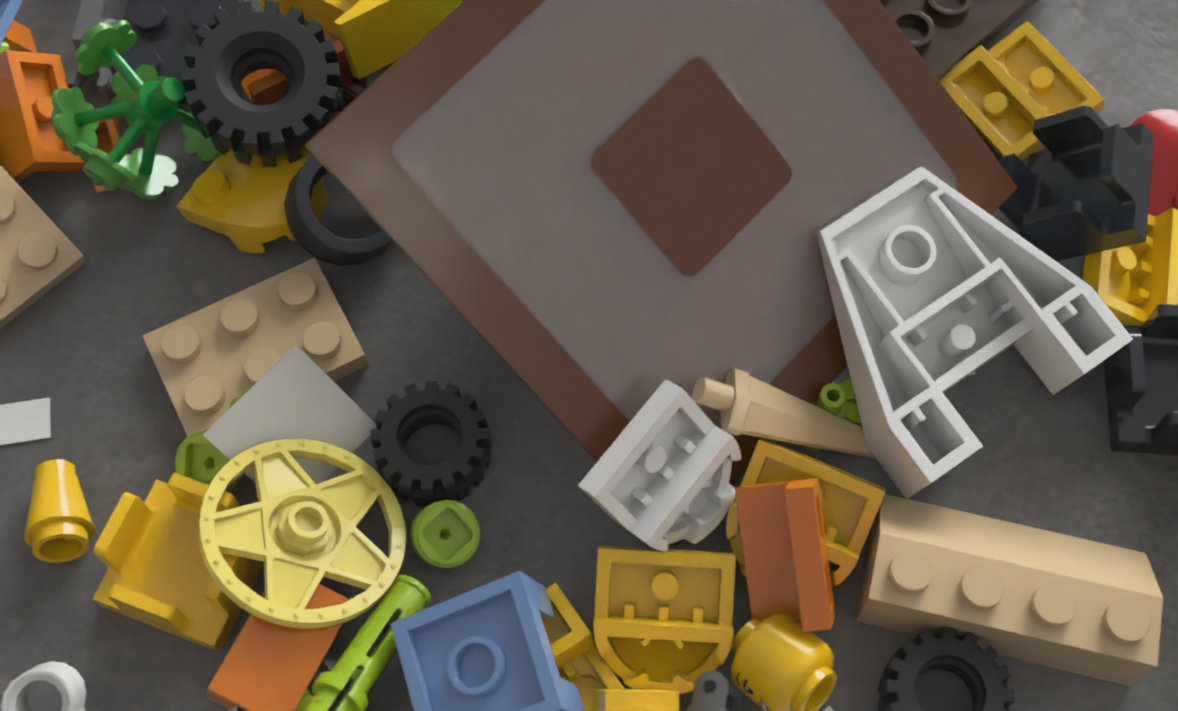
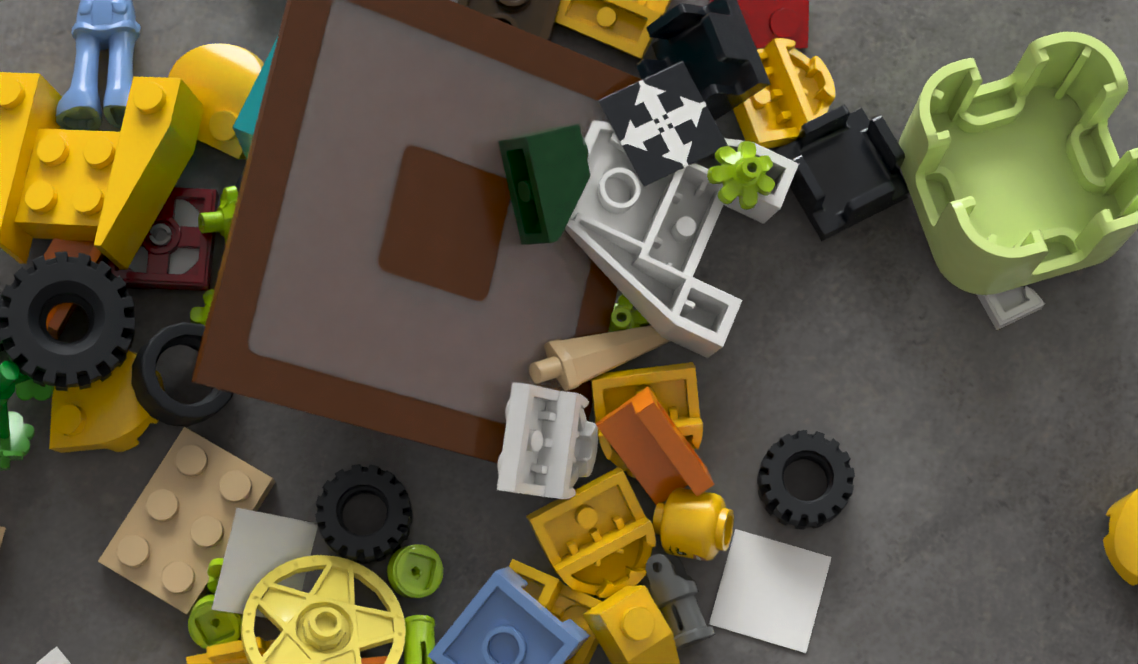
camera: 35 degrees left, 10 degrees up
(832, 181) = (545, 180): none -> dark green slope
(998, 212) = (662, 123): none -> black sticker
(1013, 587) = (806, 380): tan slope -> none
(1059, 311) = (741, 174): none -> lime plant

